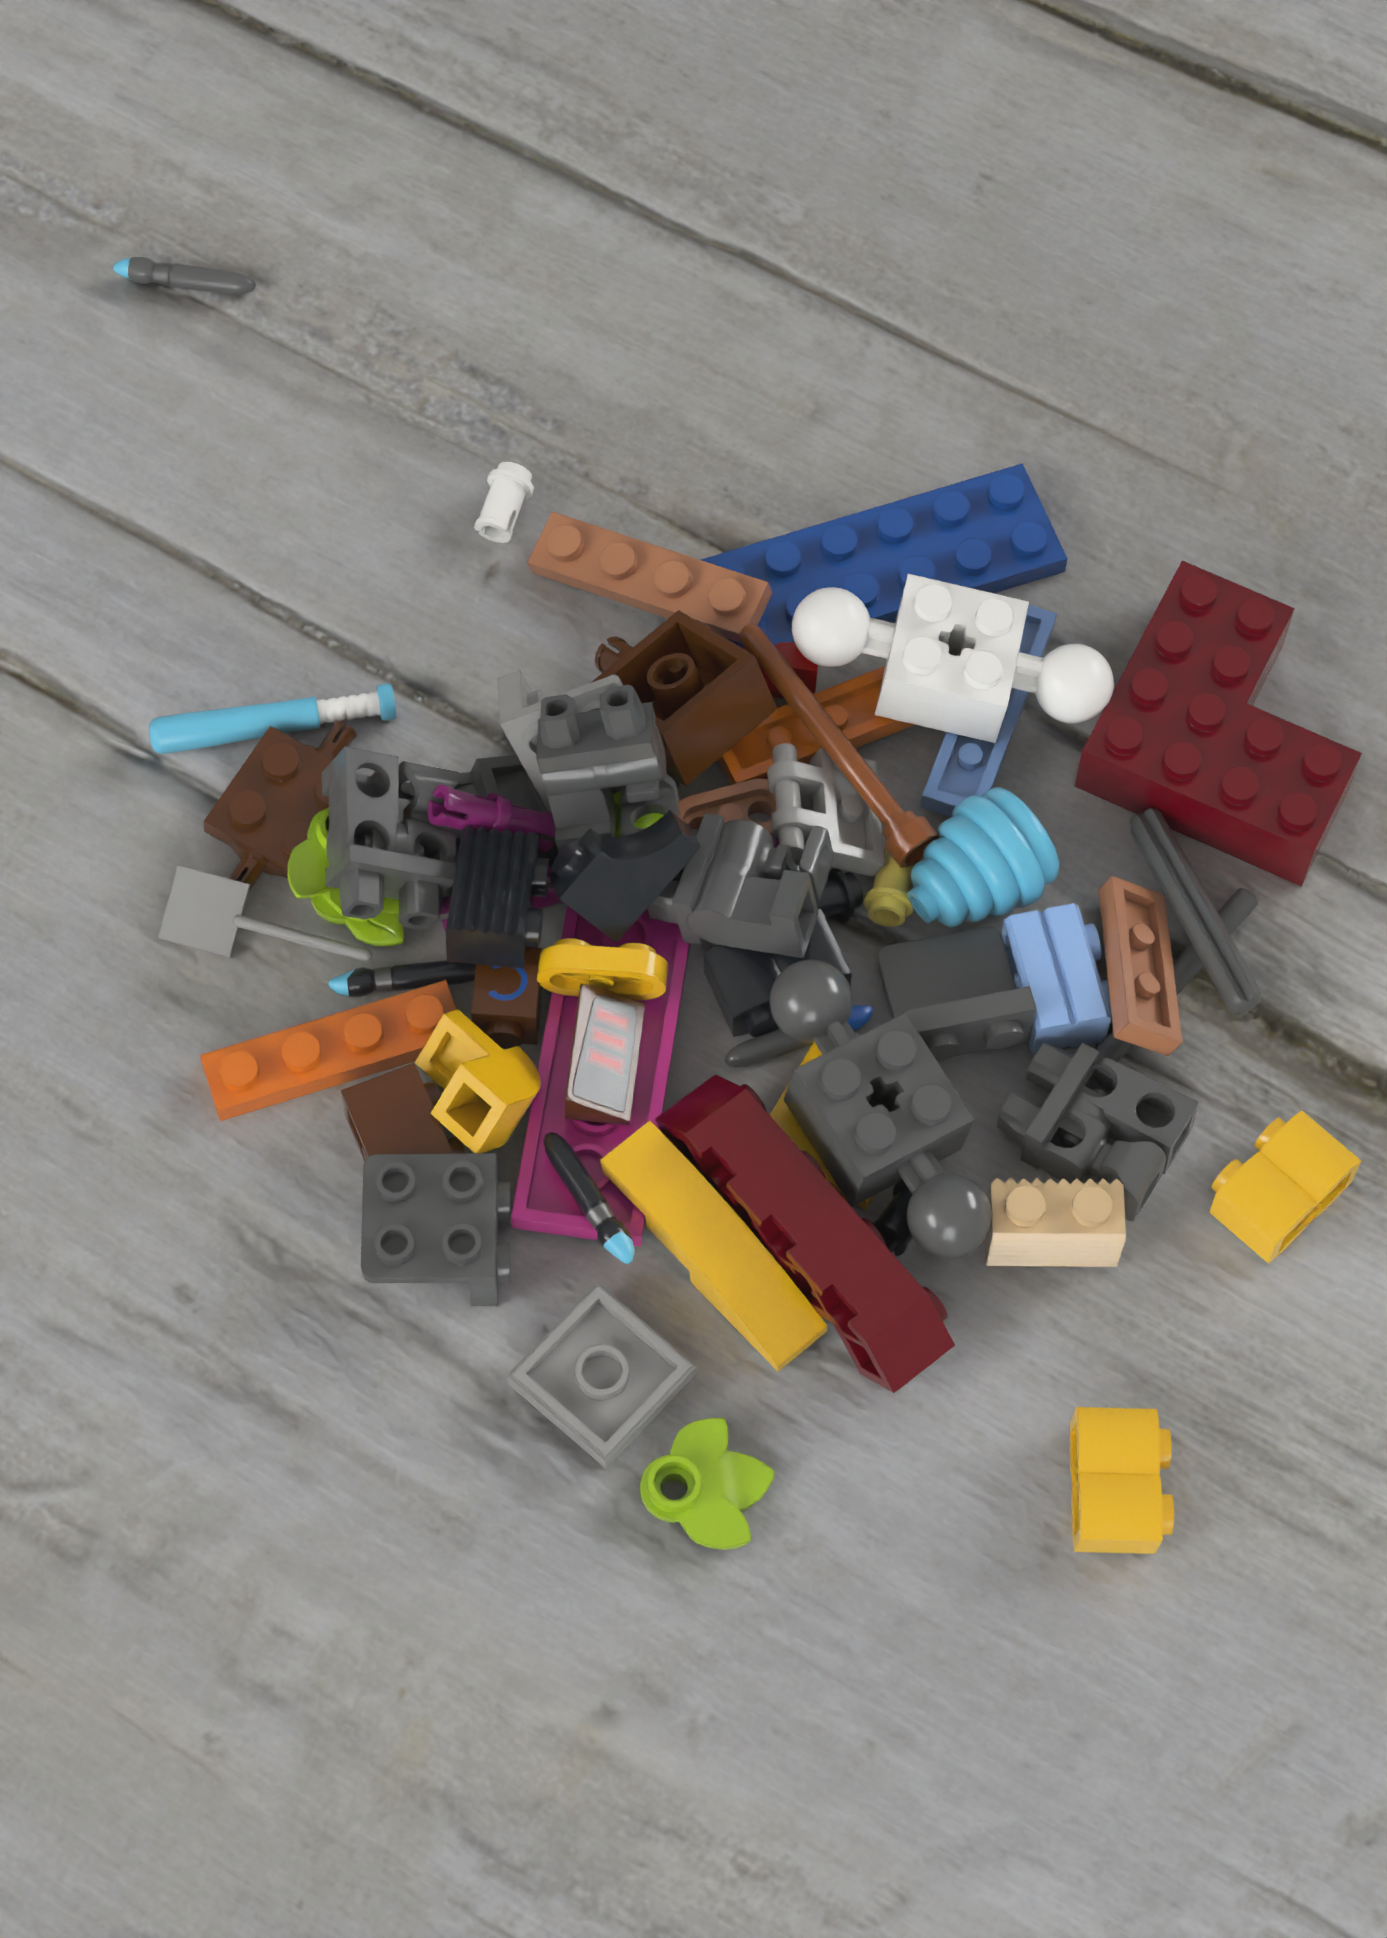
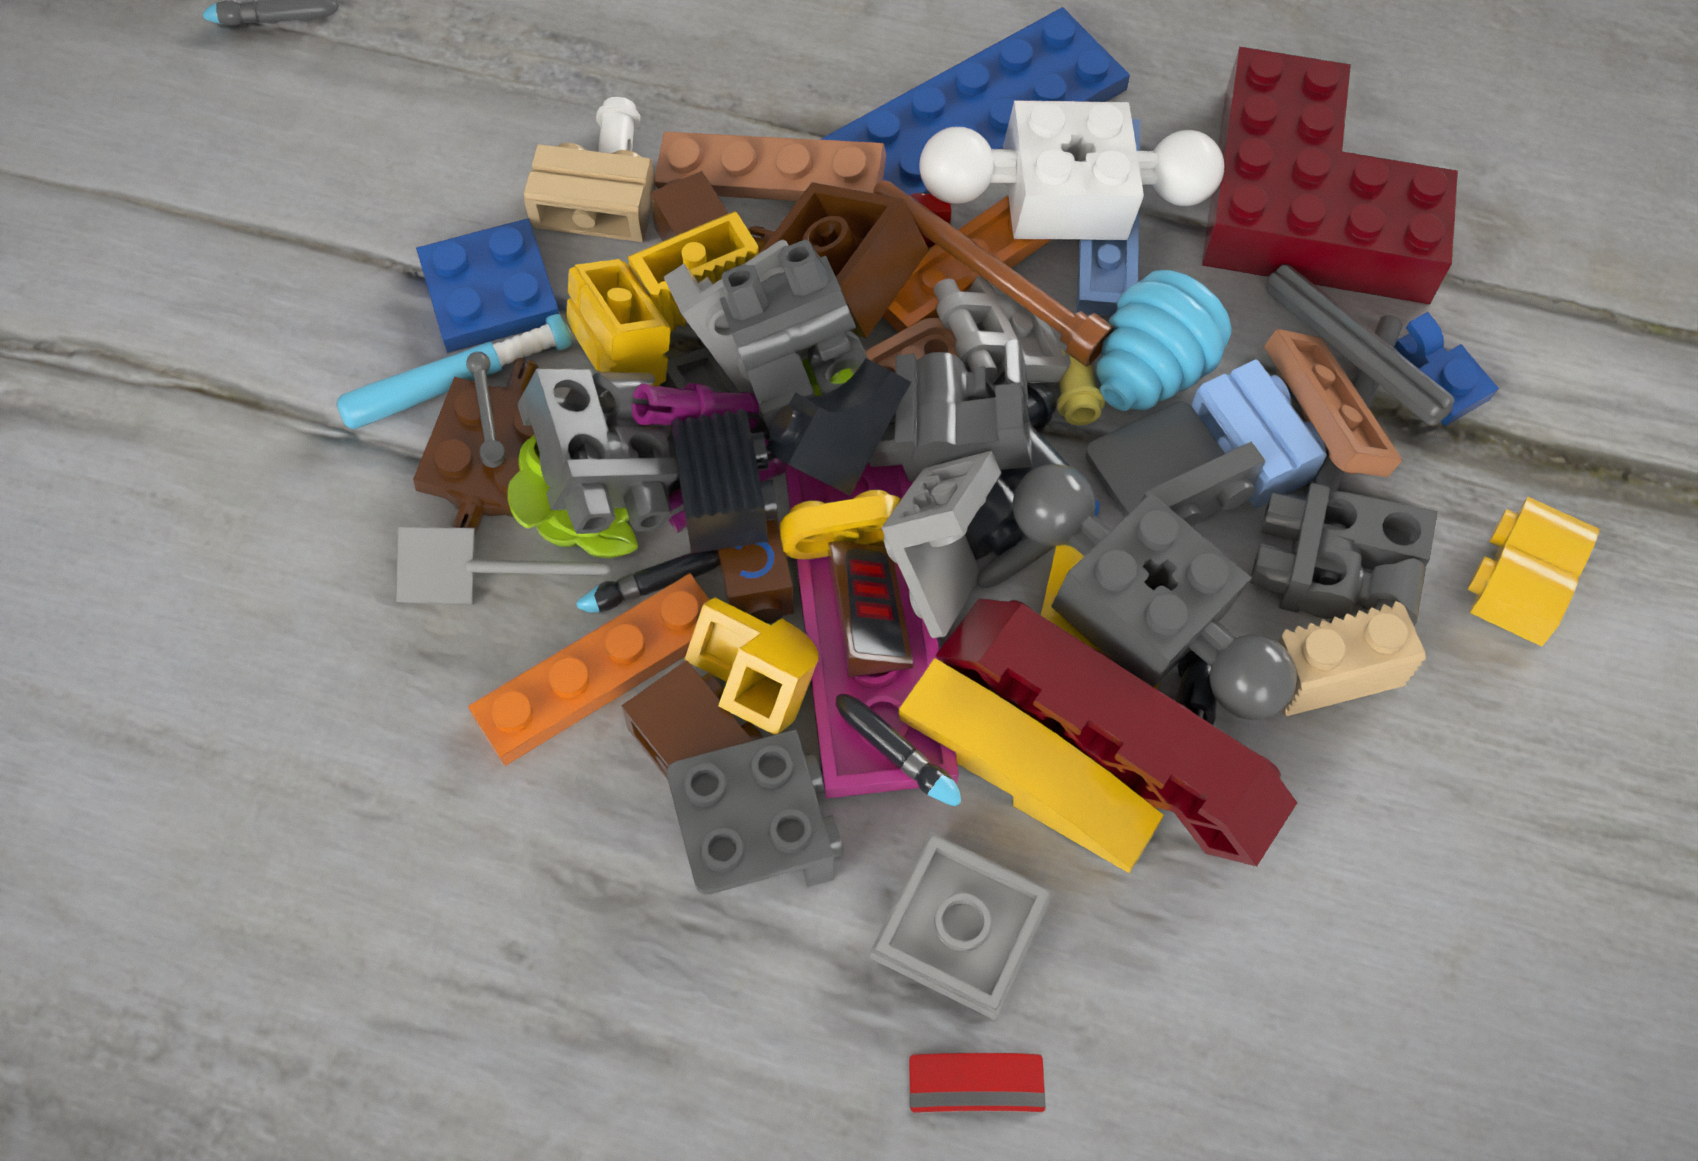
camera: 15 degrees left, 0 degrees up
(286, 812) = (491, 451): none -> dark grey hinge
(329, 634) = (487, 284): none -> blue plate
(443, 708) = (616, 320): none -> yellow brick
(459, 560) = (590, 192): none -> tan brick
(548, 660) = (704, 251): none -> yellow brick
(553, 619) = (685, 205): none -> reddish brown brick
(573, 1519) = (976, 1082): none -> red sticker
(682, 1009) = (930, 539): none -> light grey bracket
(716, 1484) = (1110, 1009): lime plate -> none
(1118, 1480) = (1496, 895): yellow brick -> none
(1281, 968) = (1452, 369): none -> blue plate

